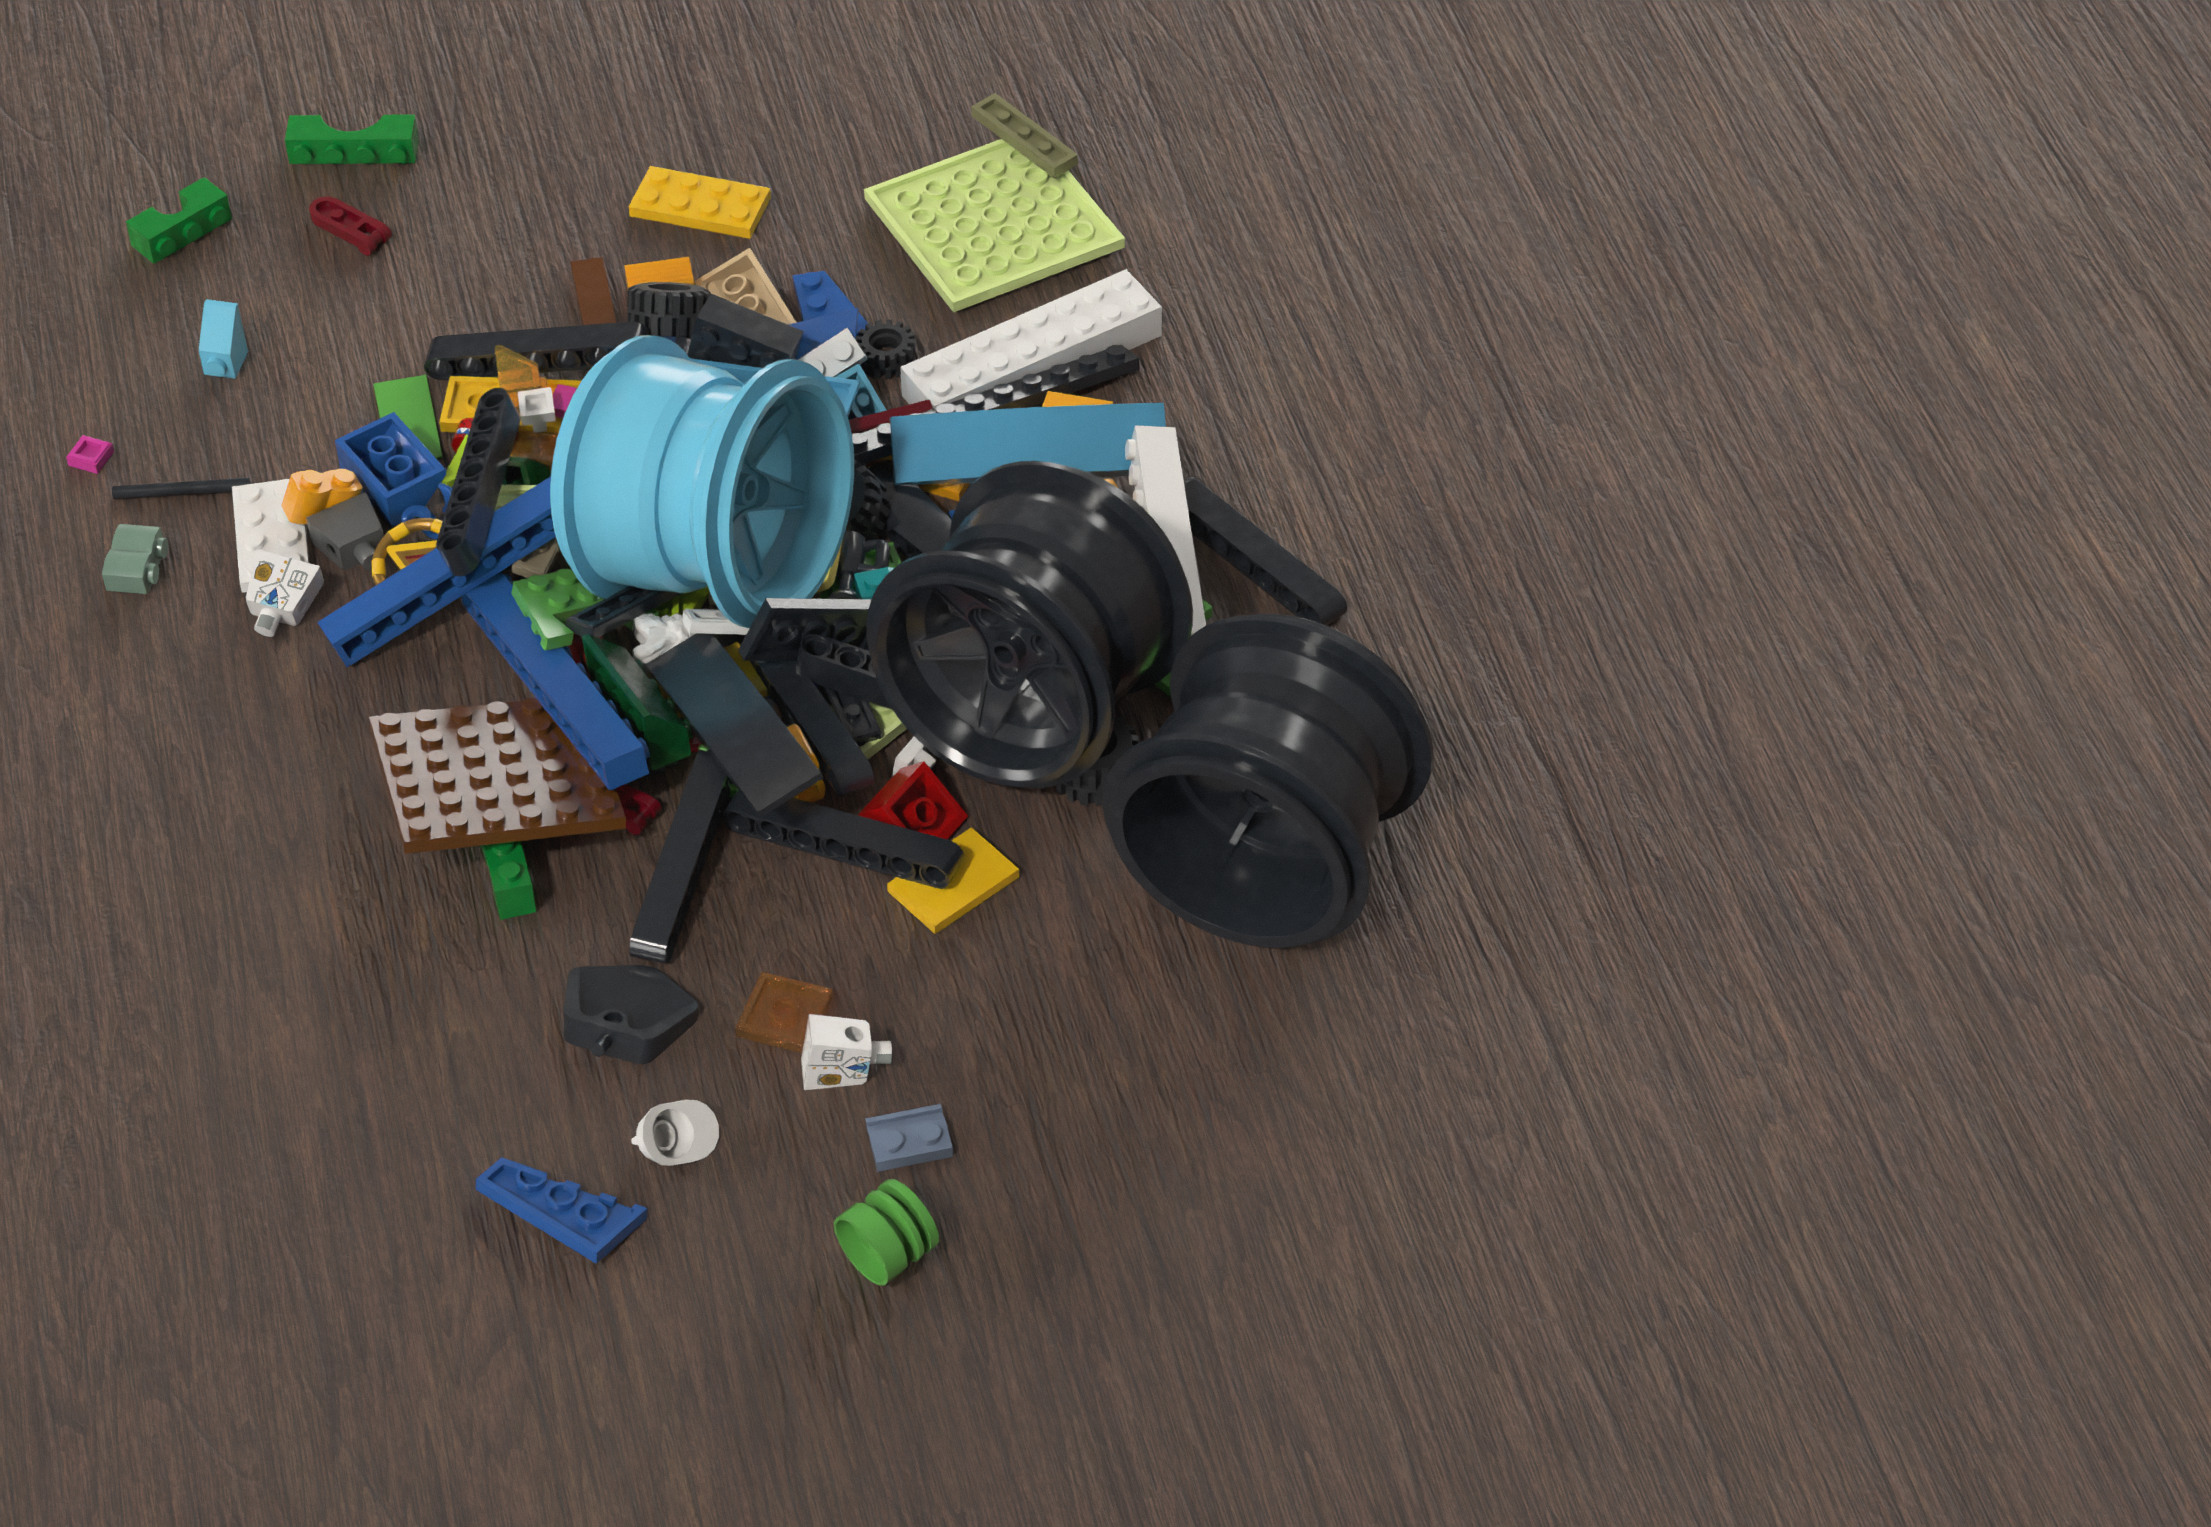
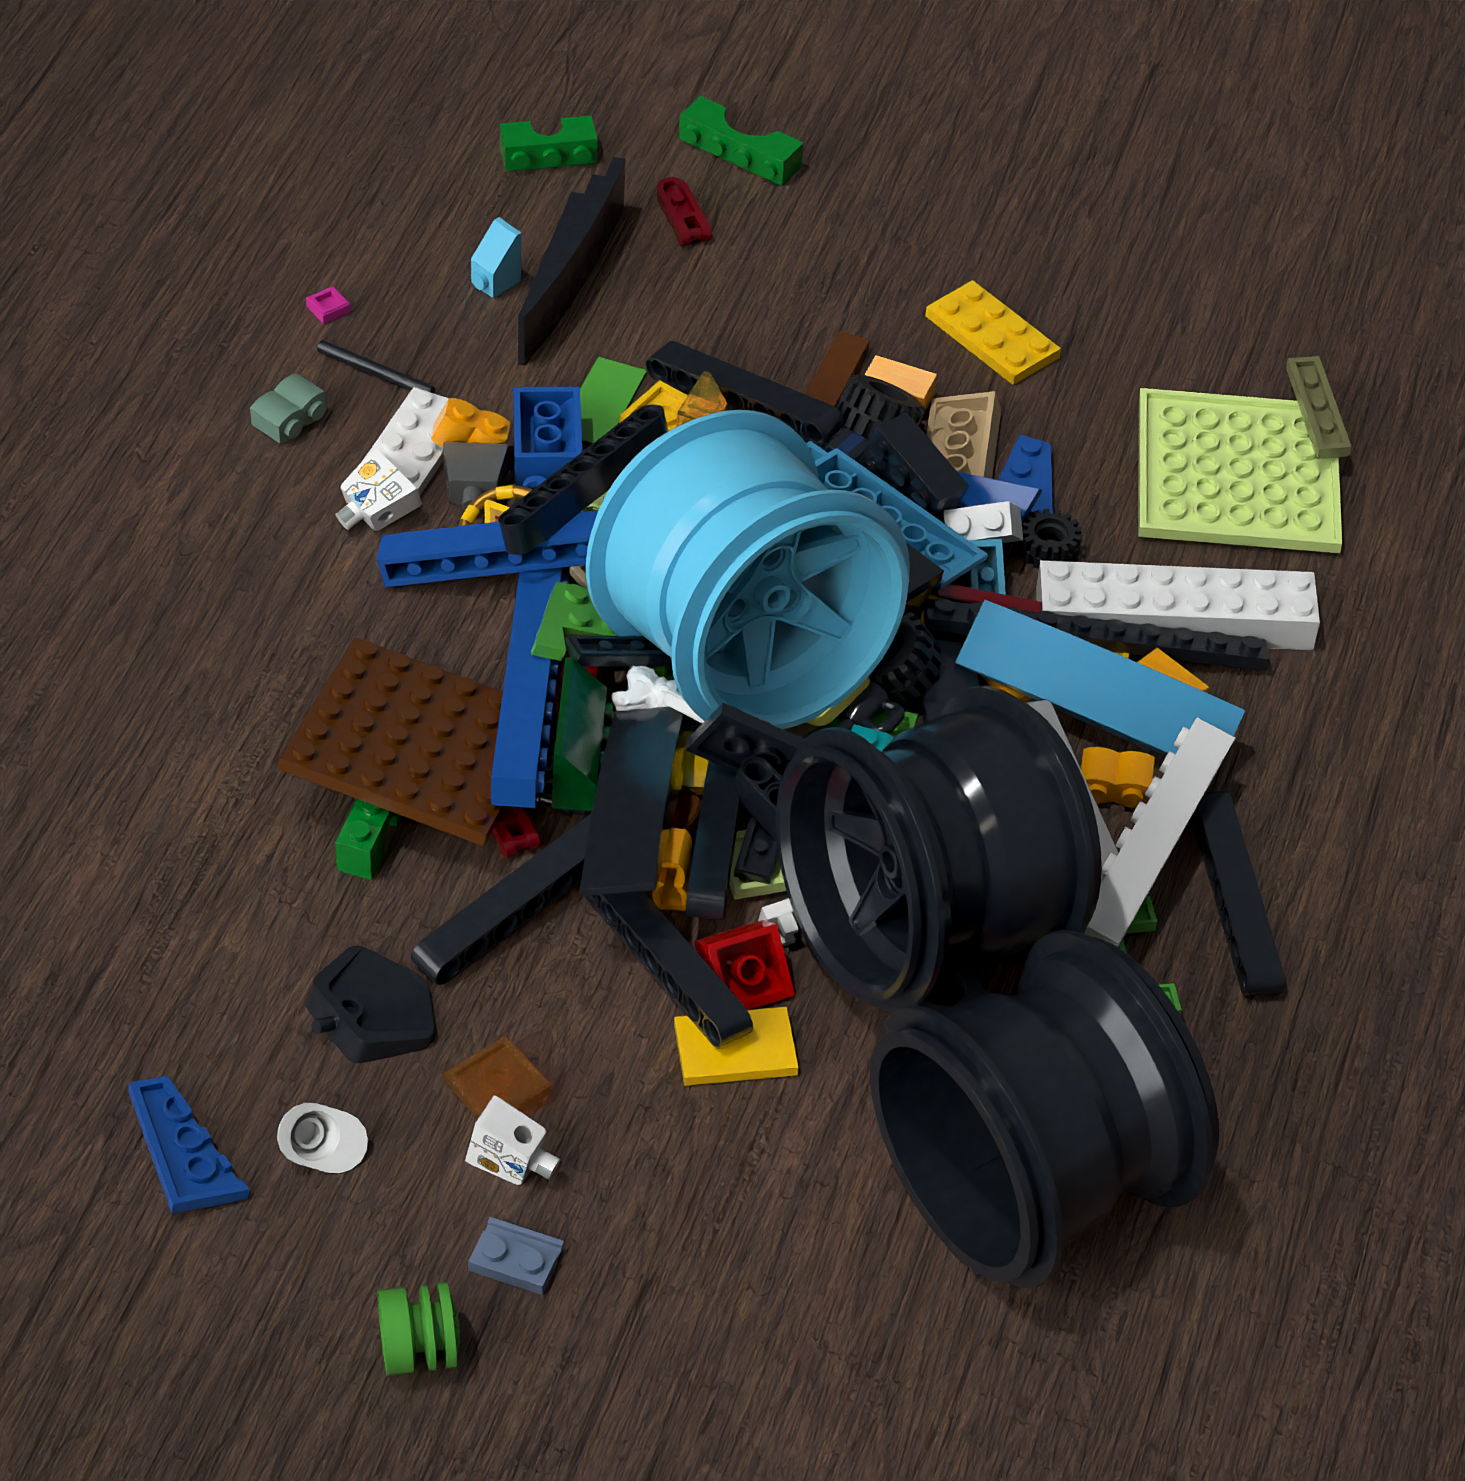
camera: 30 degrees right, 0 degrees up
(285, 303) = (571, 256): none -> black slope

